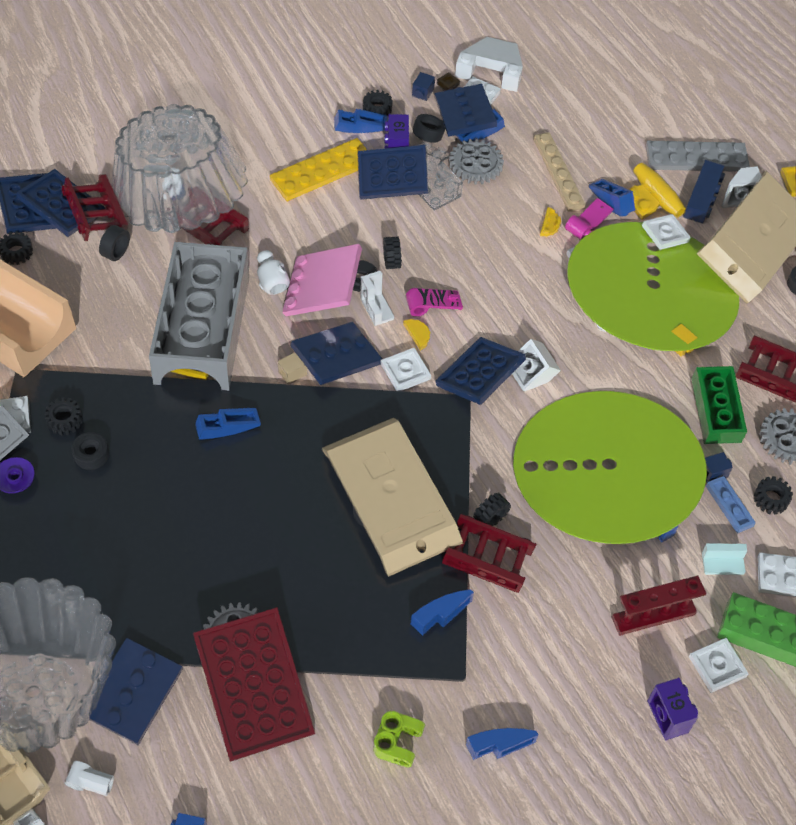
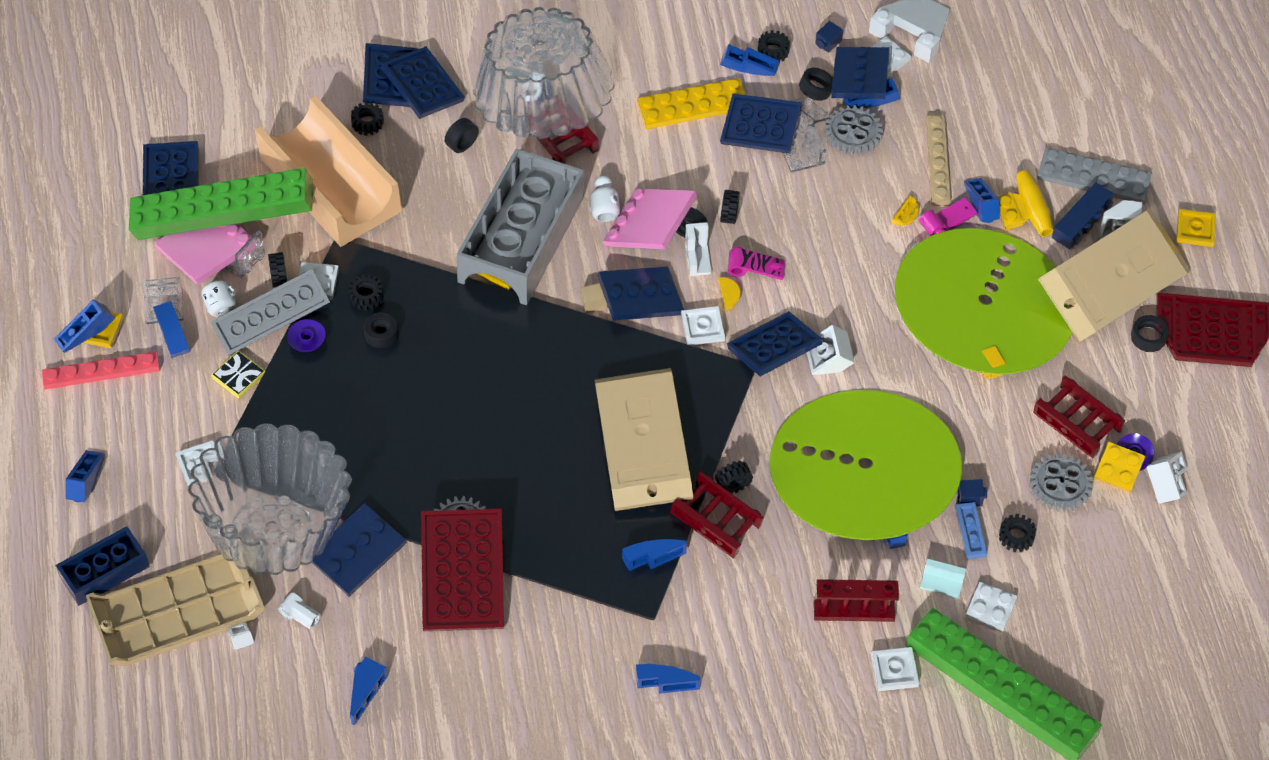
camera: 20 degrees right, 0 degrees up
(107, 198) = (468, 88): dark red fence -> none
(226, 422) = (514, 334): blue slope -> none
(394, 753) = (570, 647): lime piece -> none
(397, 131) = (779, 82): dark purple brick -> none
(448, 81) = (857, 37): dark brown plate -> none
(666, 231) = (1022, 249): white plate -> none
(672, 708) = (832, 691): dark purple brick -> none
(719, 405) = (999, 434): green brick -> none

